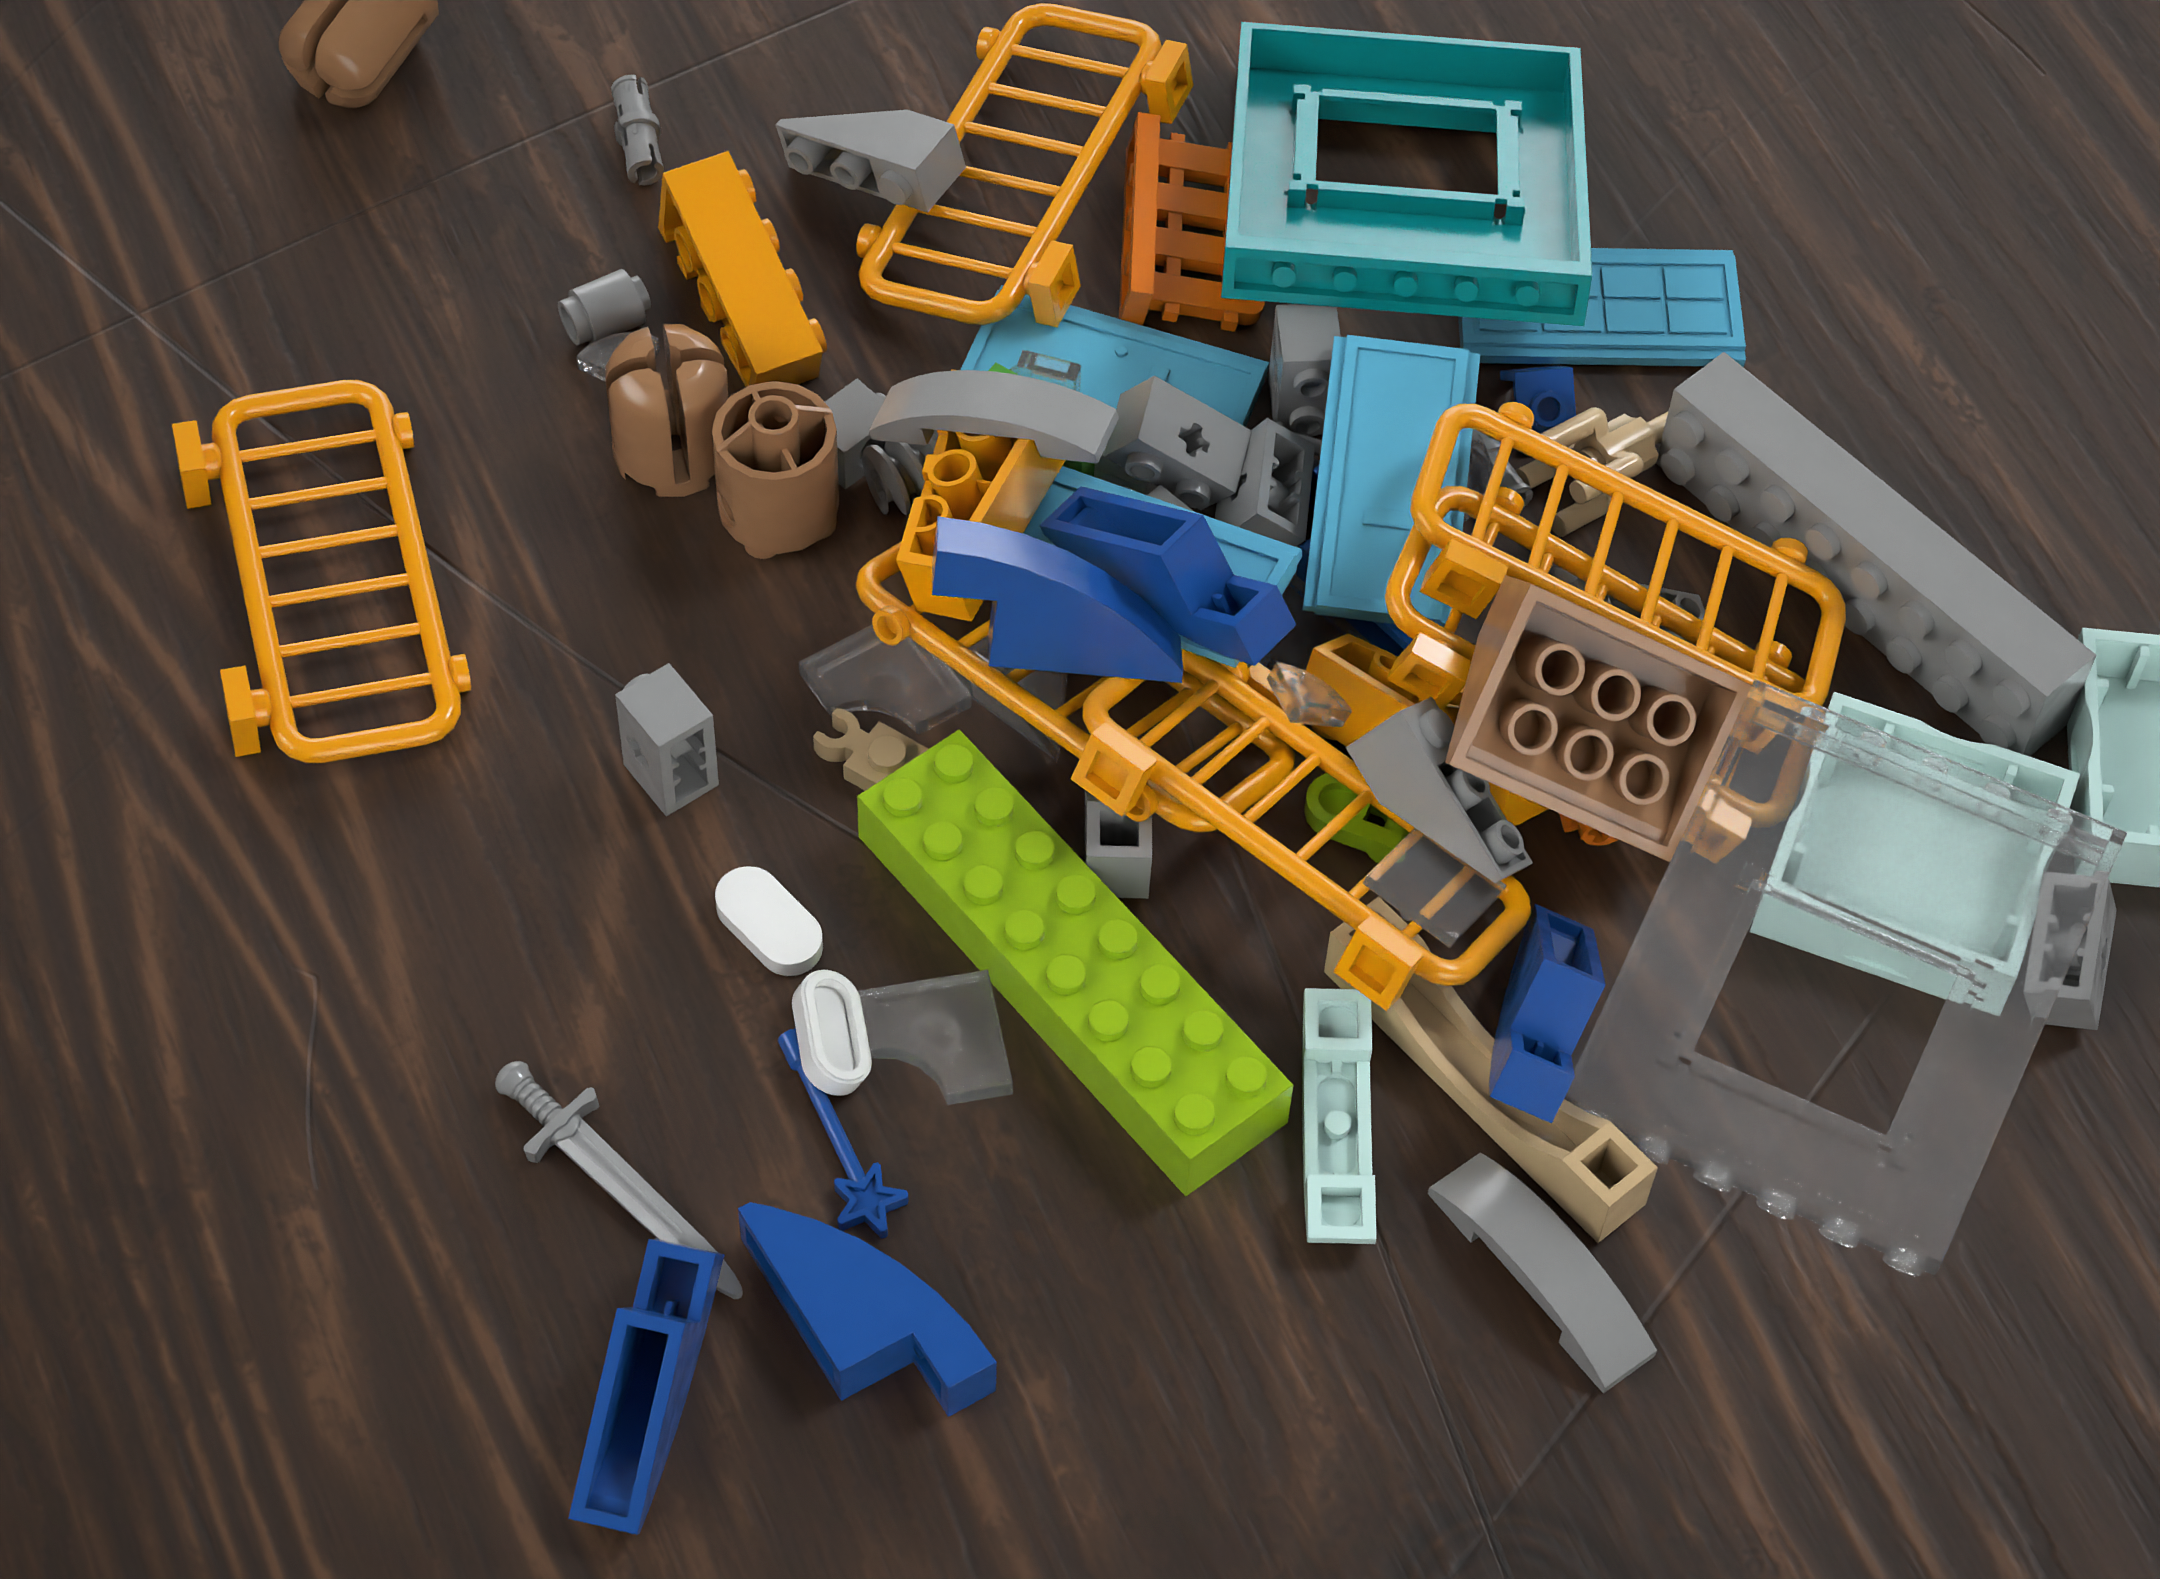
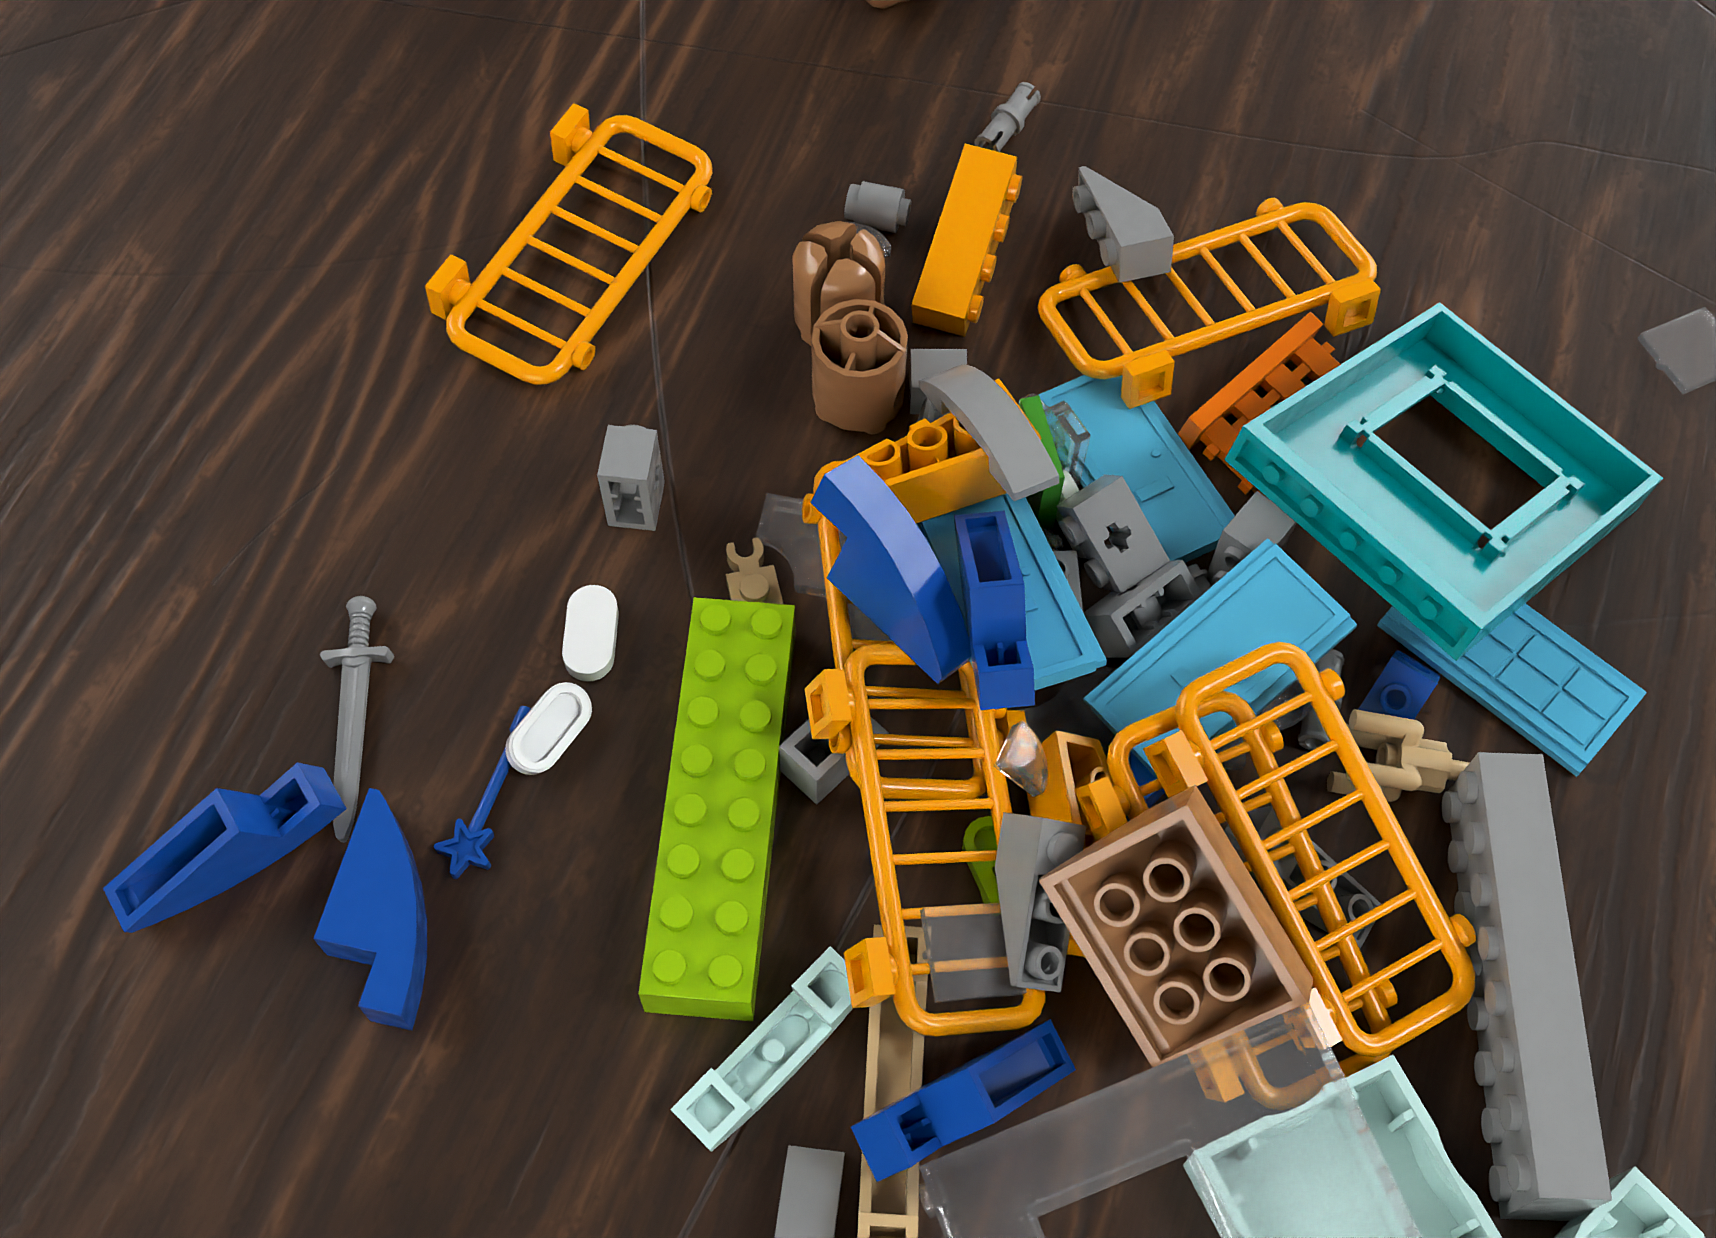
camera: 45 degrees right, 5 degrees up
(944, 1029) = (616, 784): clear tile -> none

